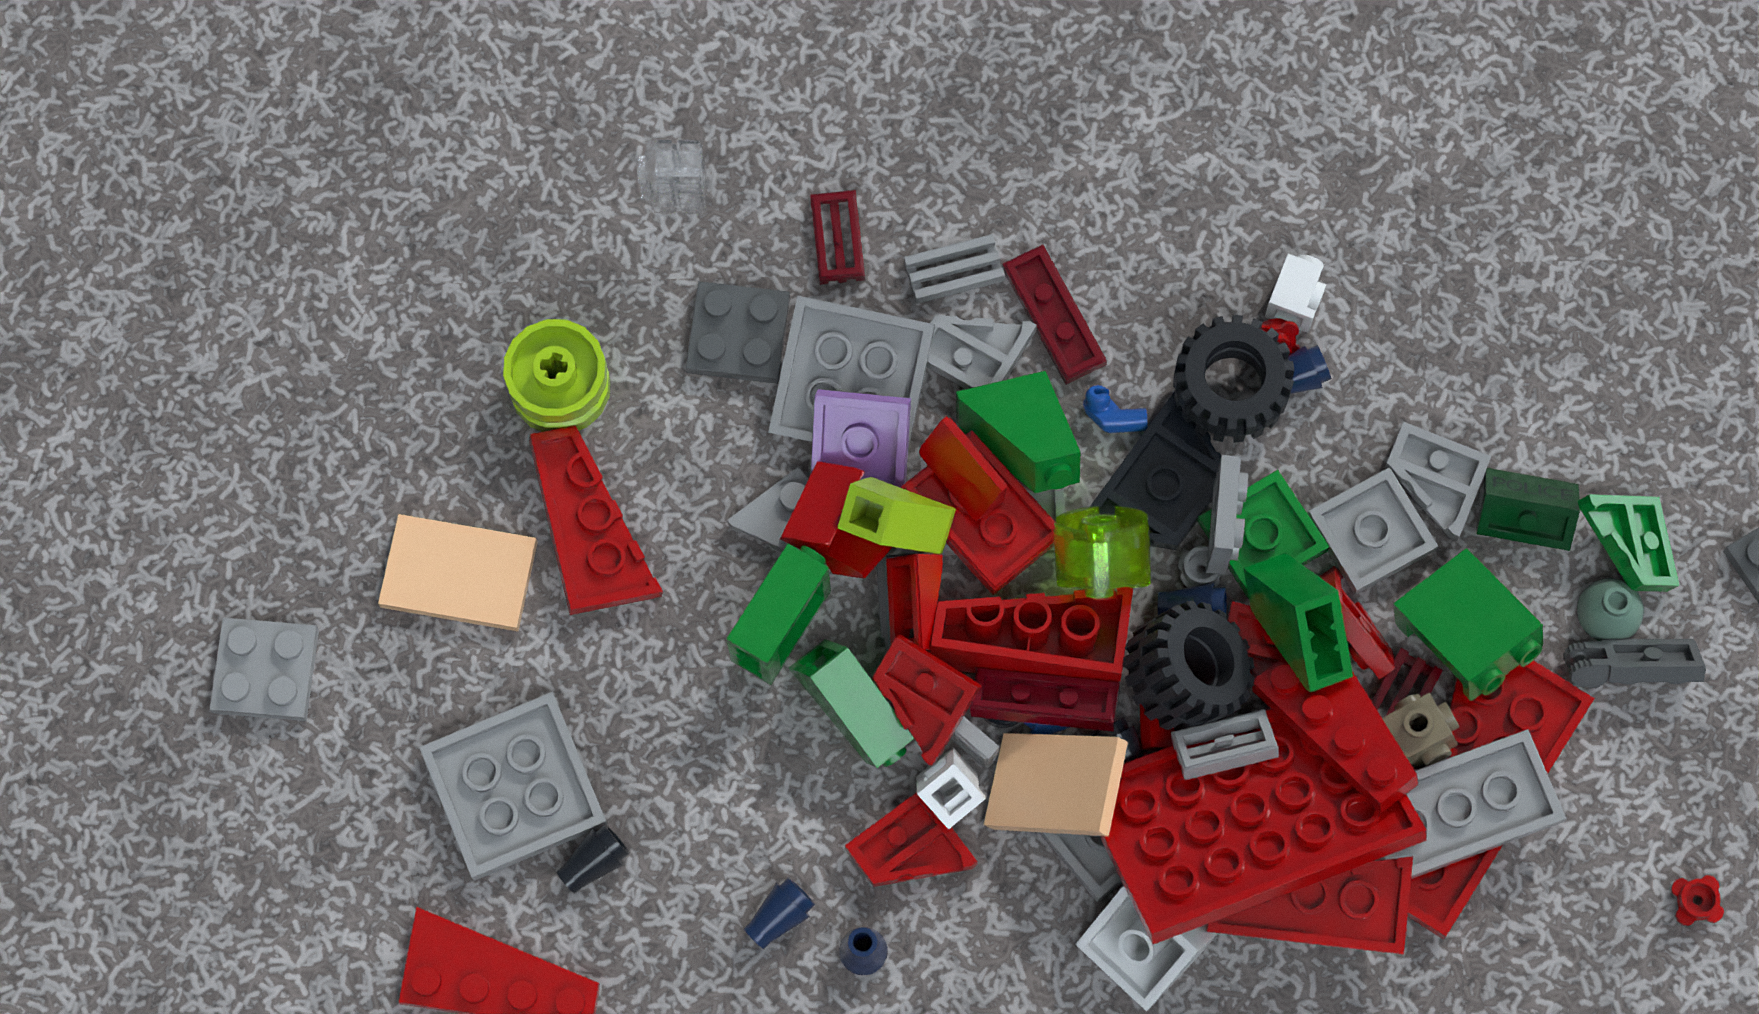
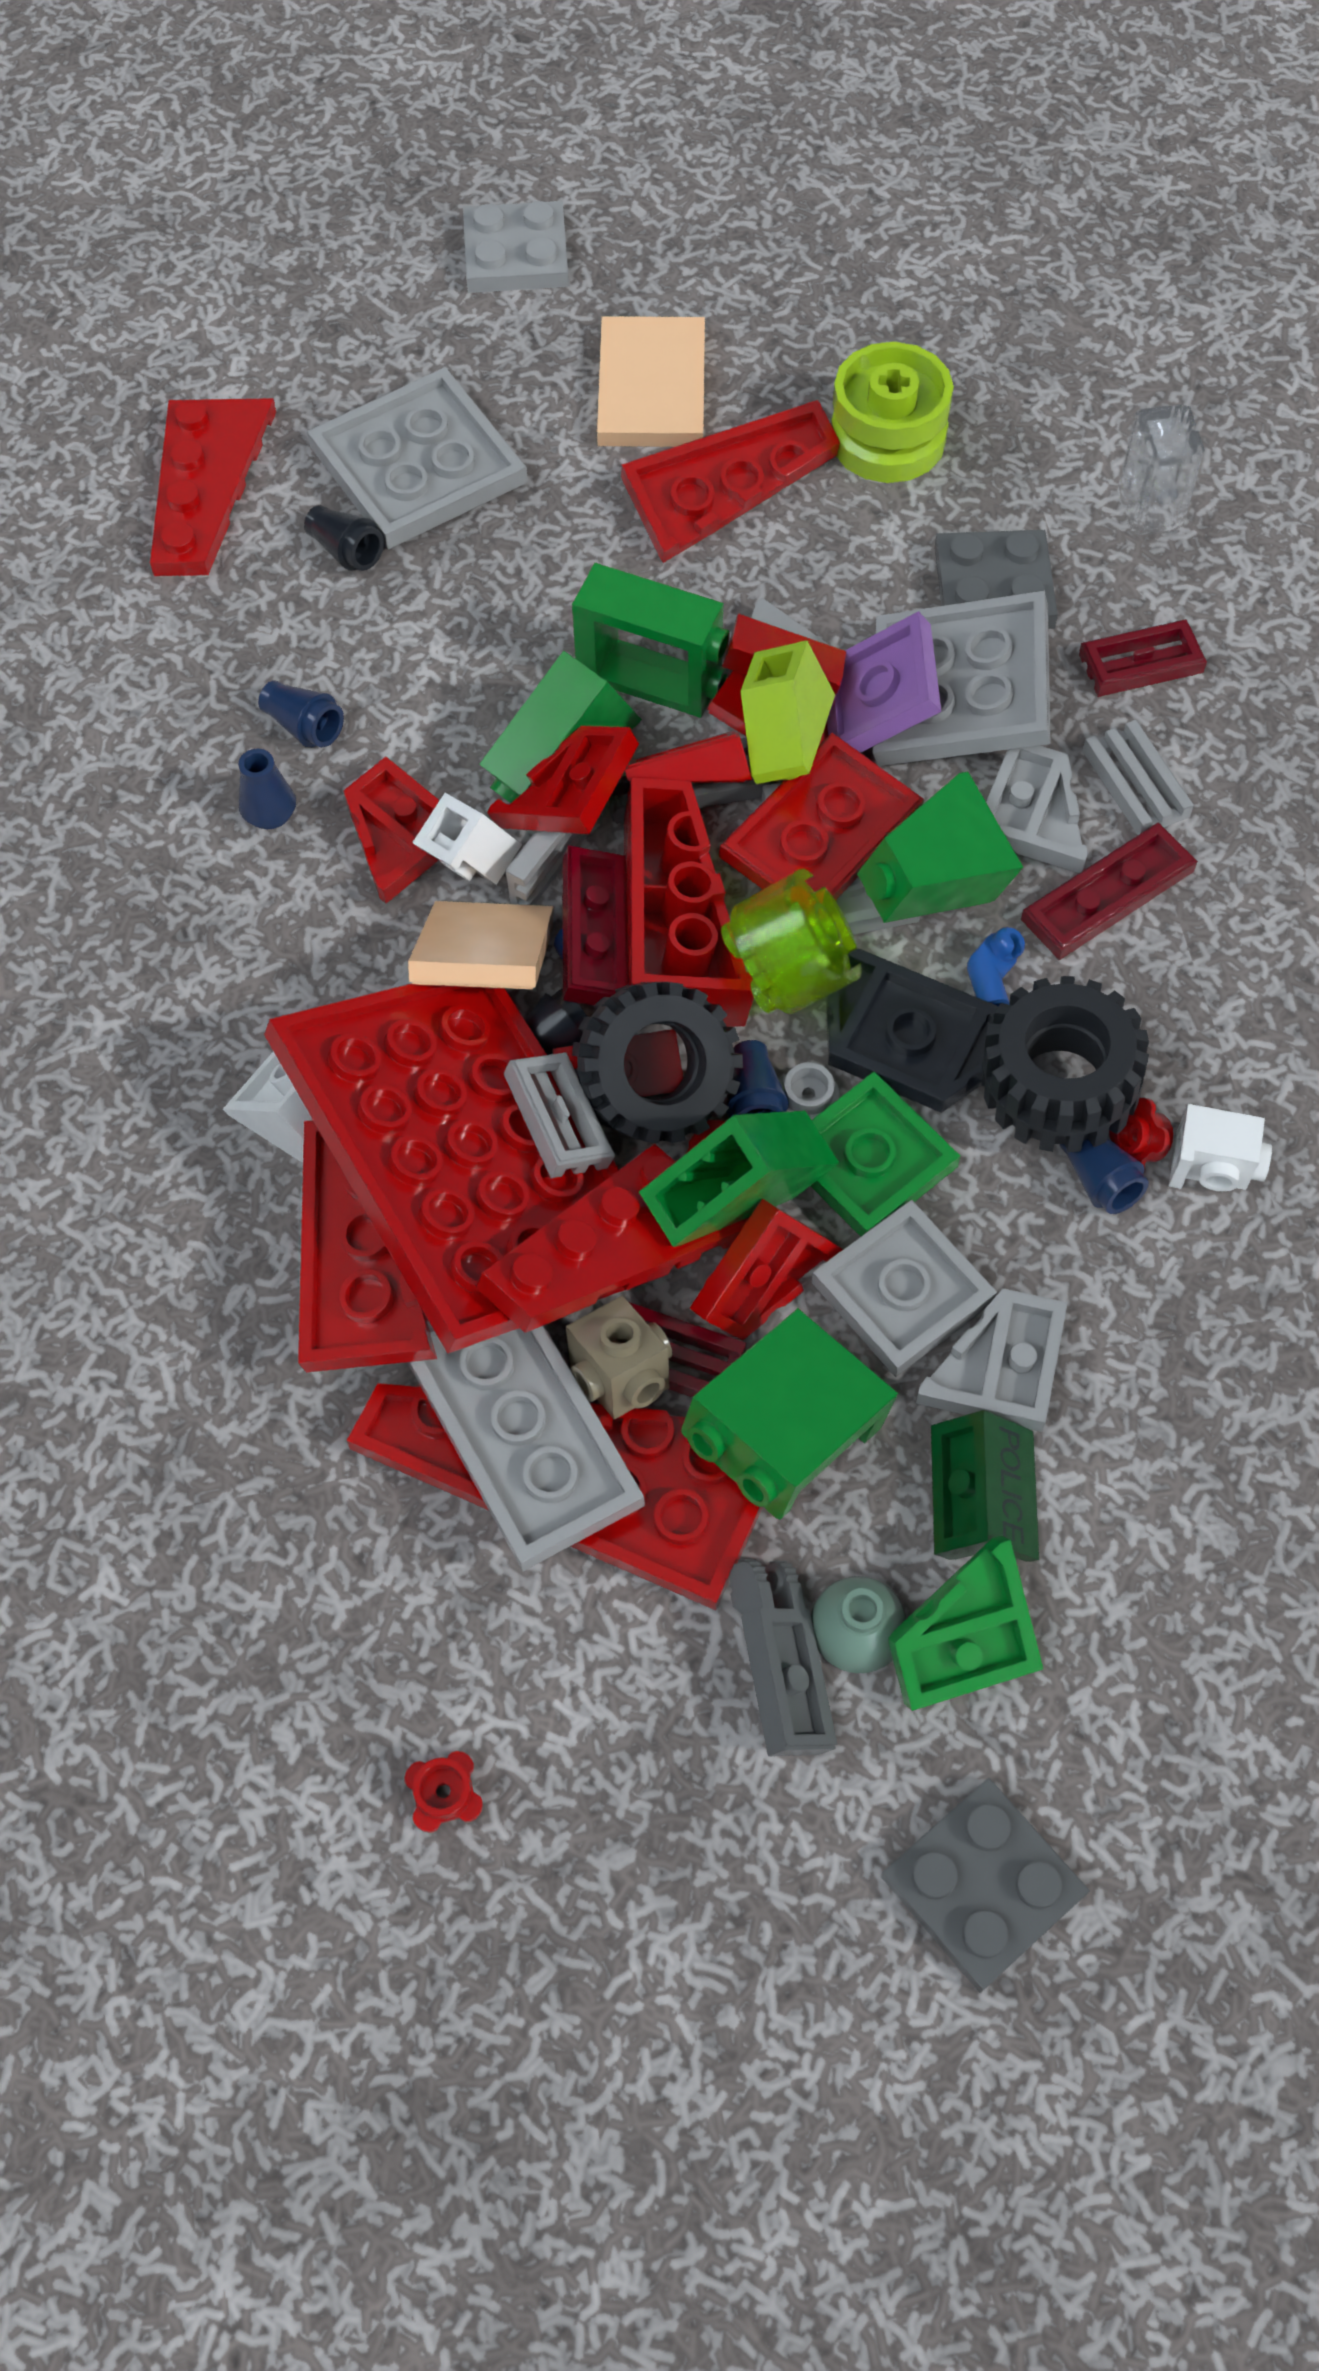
camera: 80 degrees right, 10 degrees down
(963, 469) = (866, 784): red slope -> none
(1227, 502) = (868, 1066): light grey plate -> none

